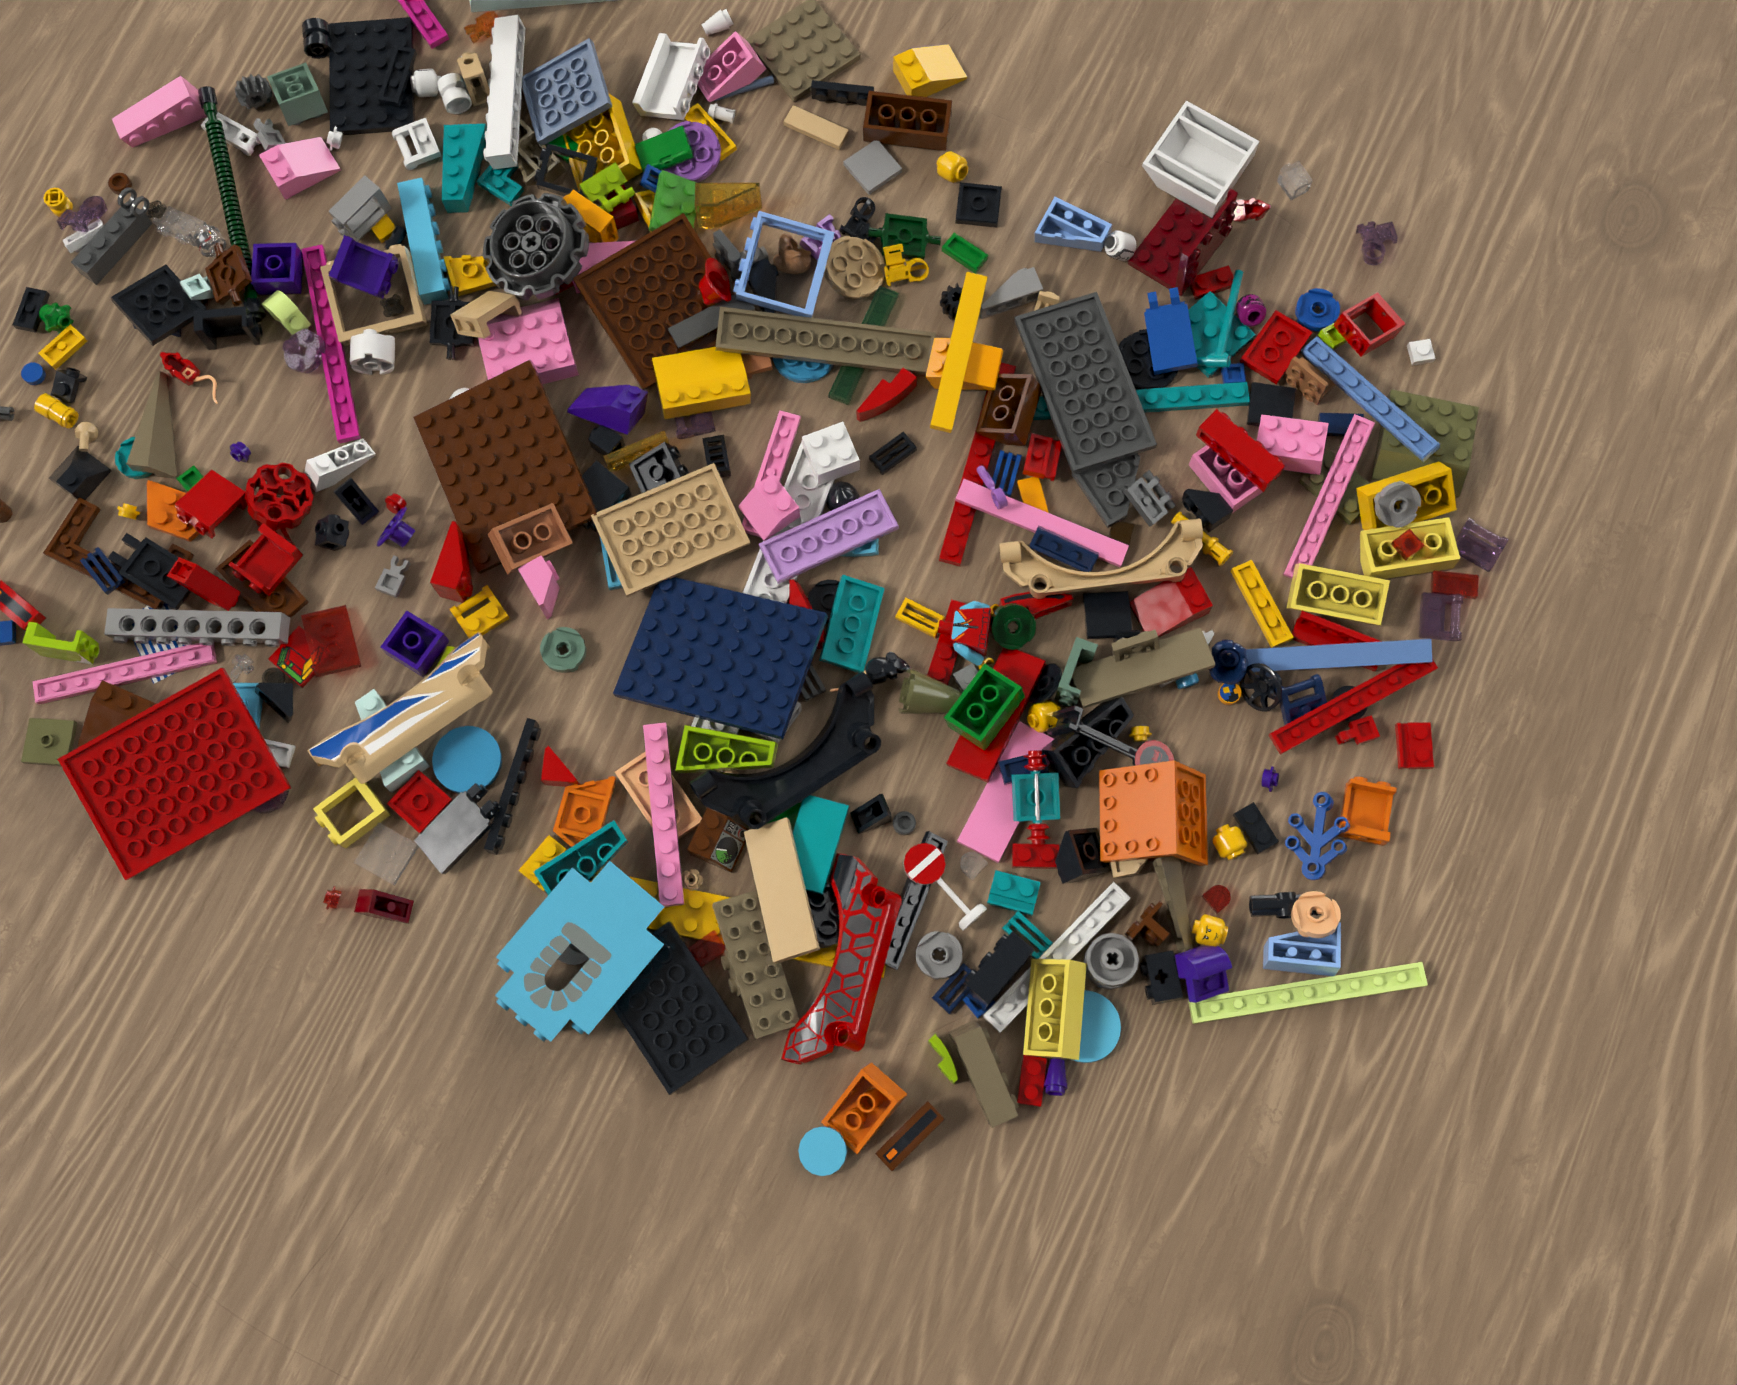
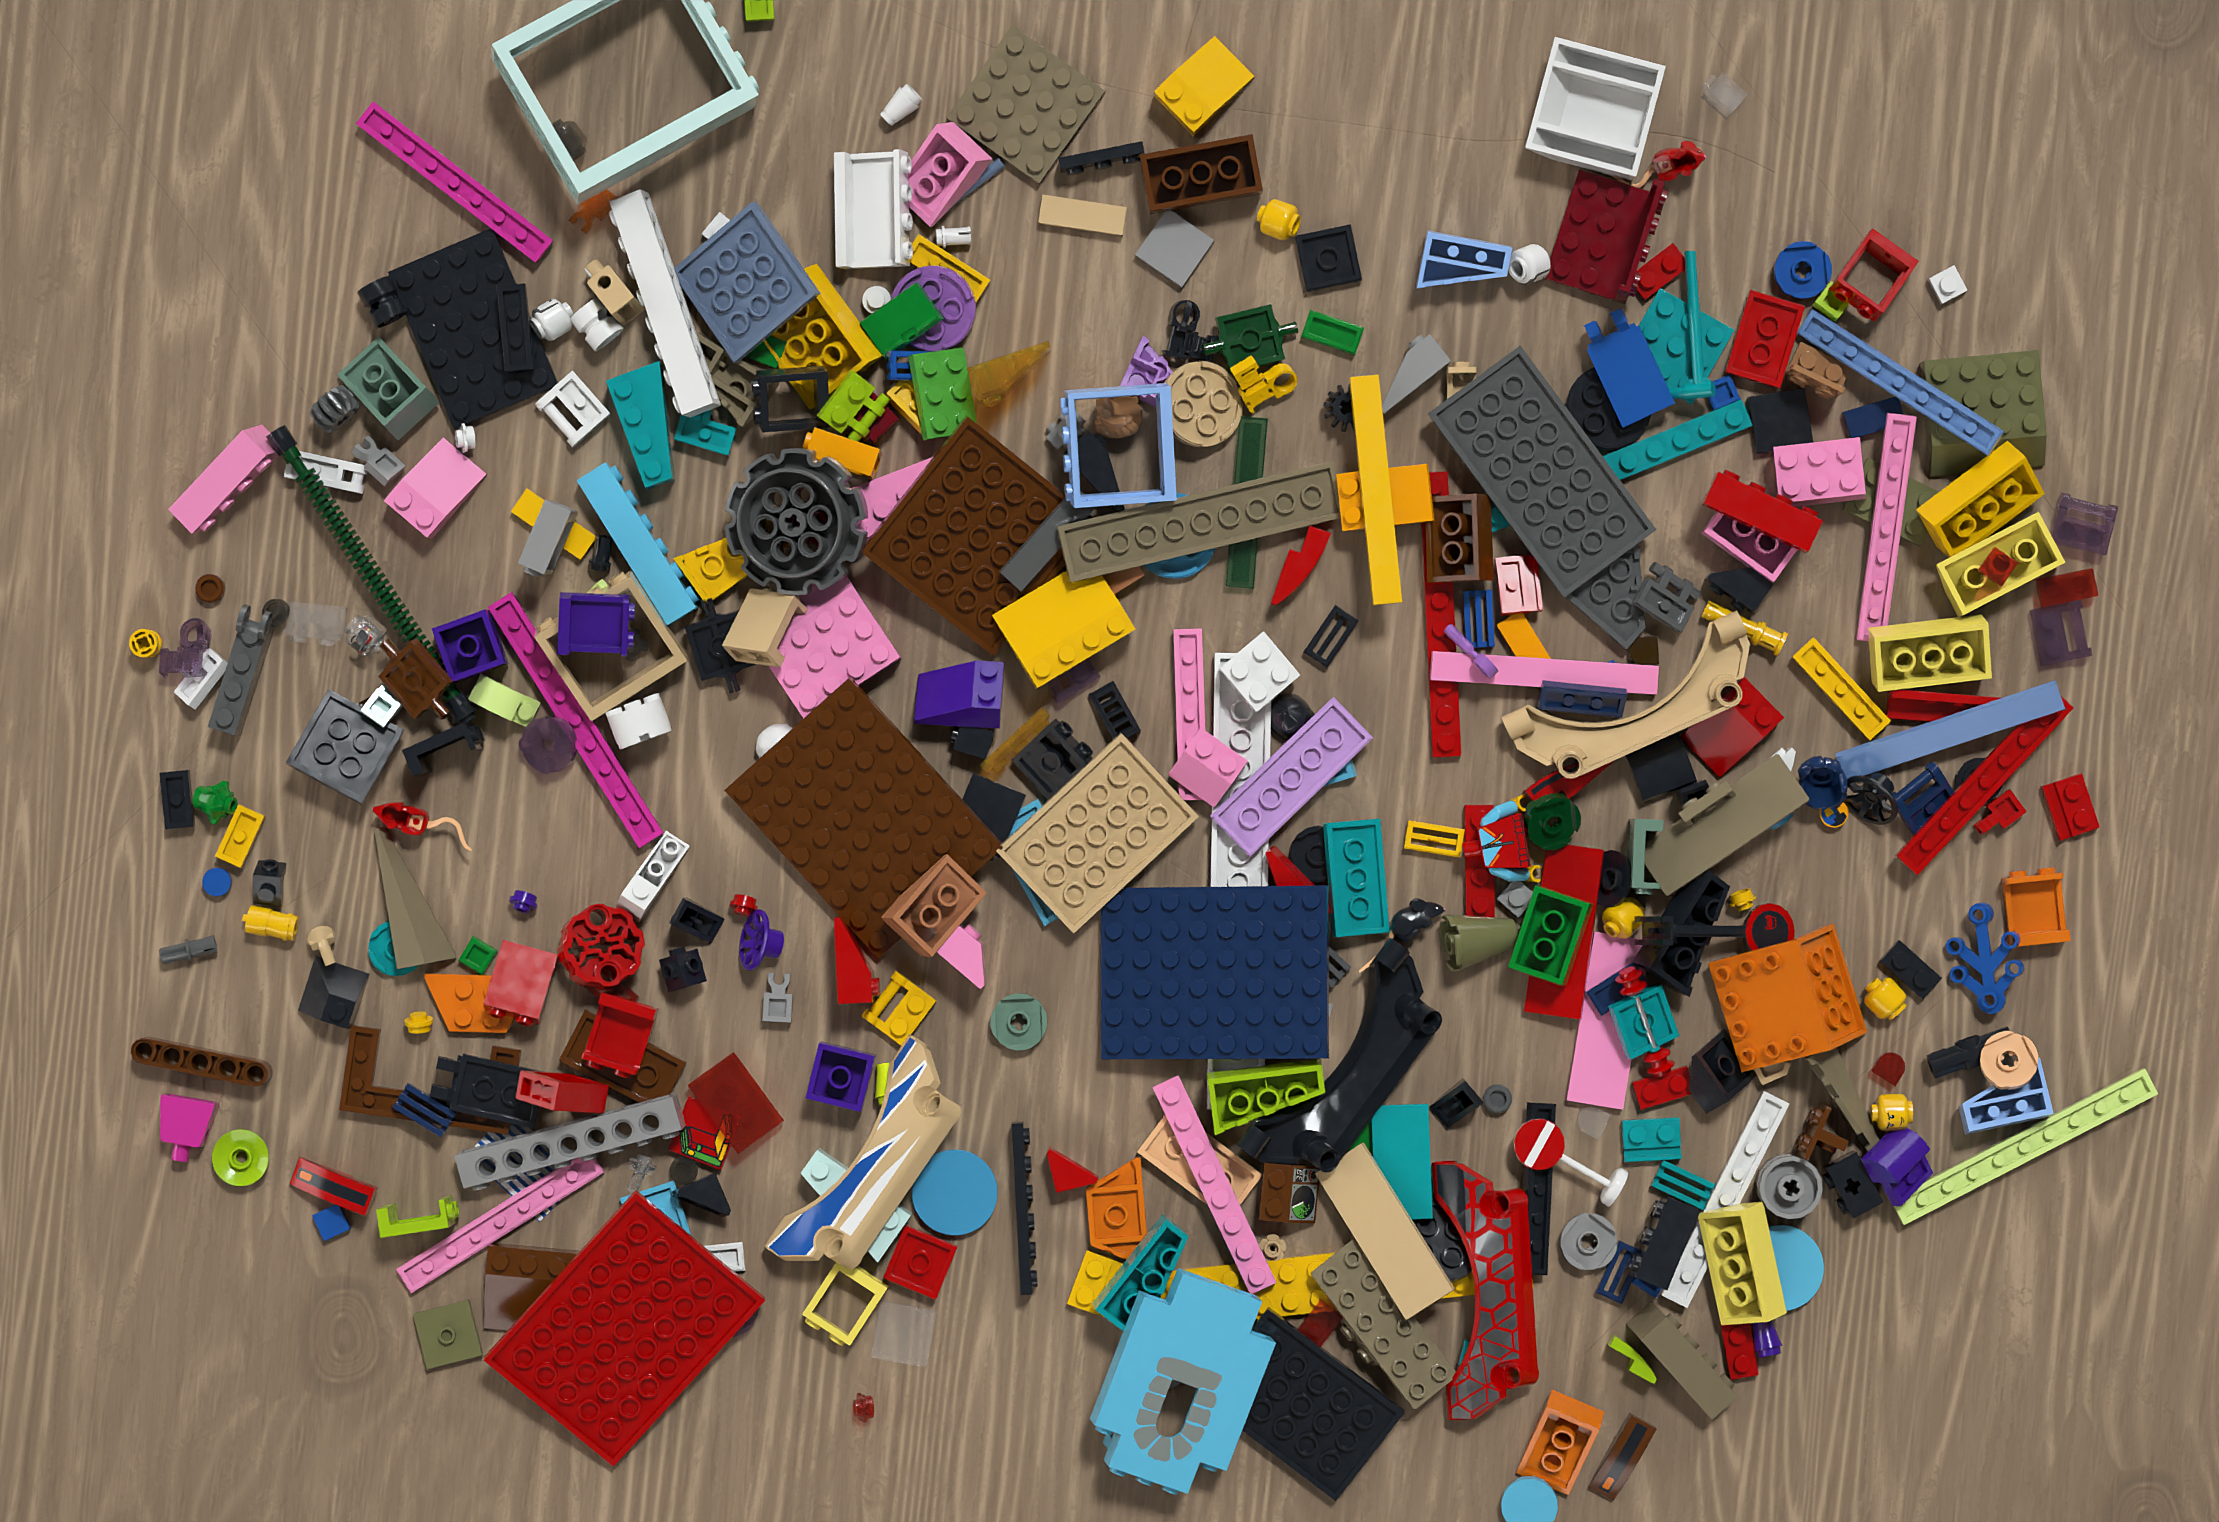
camera: 25 degrees left, 15 degrees up
(383, 906) = (926, 1397): dark red slope -> none
(457, 828) = (978, 1282): tile -> none
(715, 283) = (1040, 498): red piece -> none
(727, 254) = (1030, 439): dark grey plate -> none
(1251, 310) = (1719, 301): magenta head -> none
(1270, 778) = (1911, 905): dark purple plate -> none
(1377, 236) = (1847, 141): clear purple piece -> none
(1389, 495) = (1971, 509): light grey plate -> none

